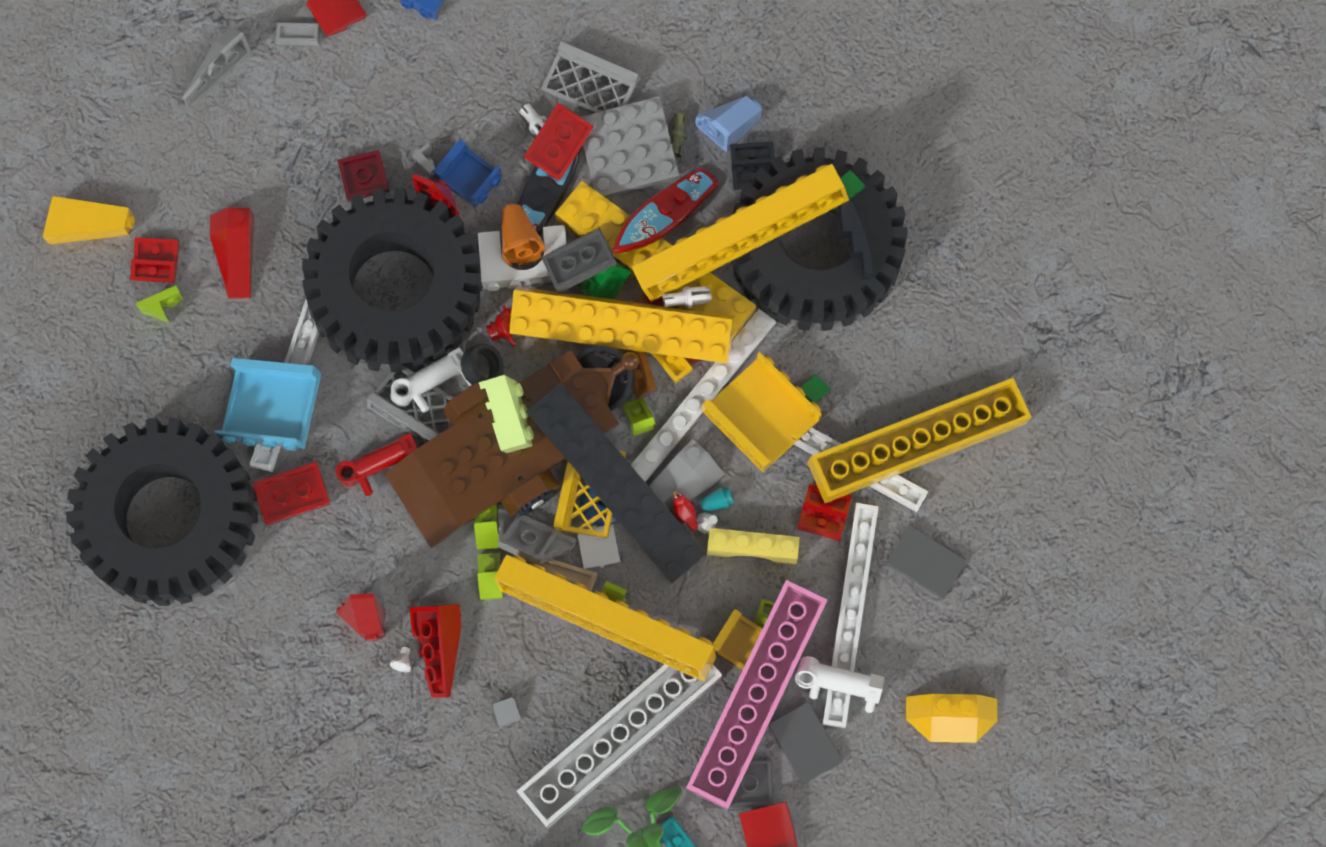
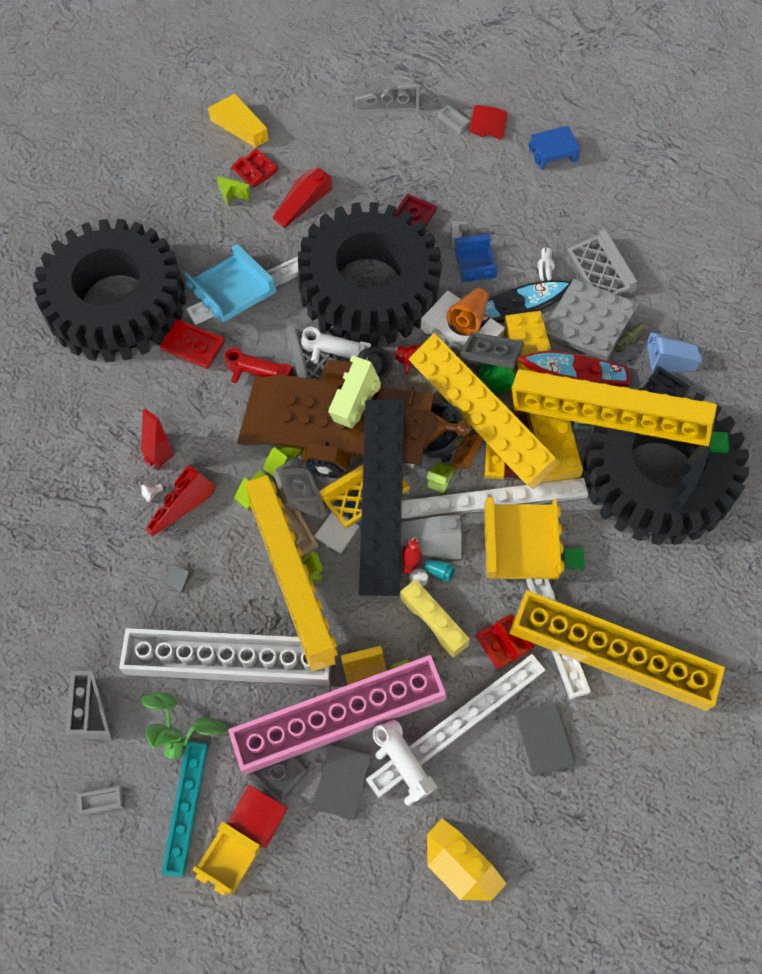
camera: 45 degrees right, 10 degrees down
(436, 191) = (448, 252): red wedge -> none
(558, 142) = (547, 279): red plate -> none
(688, 297) = (541, 425): white arm -> none

